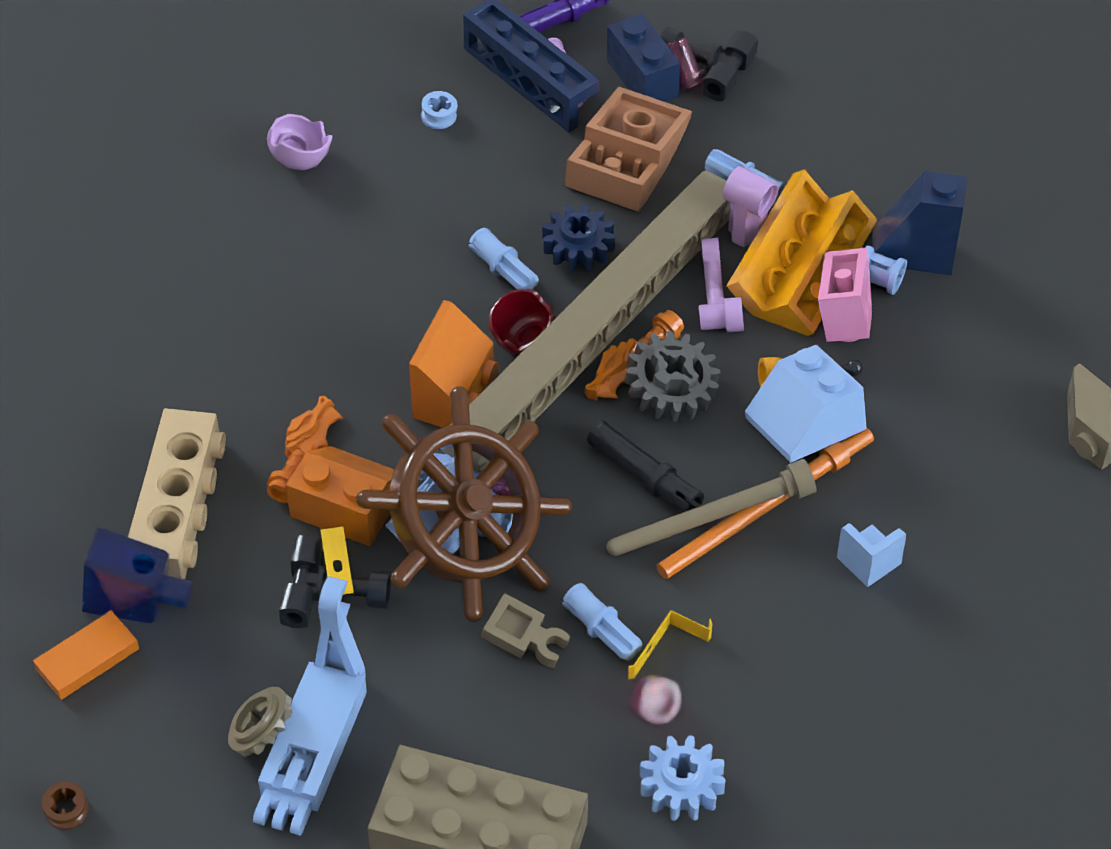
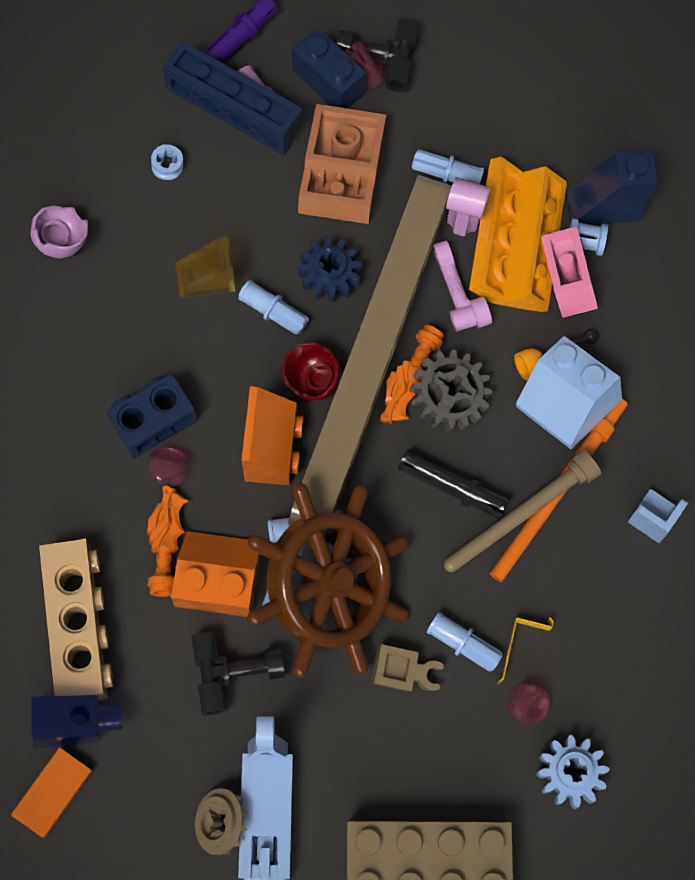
camera: 20 degrees left, 20 degrees up
(333, 327) = (157, 423): none -> dark blue brick
(334, 374) = (168, 466): none -> clear pink tile
(335, 549) = (231, 644): yellow piece -> none
(446, 210) = (206, 270): none -> clear yellow slope

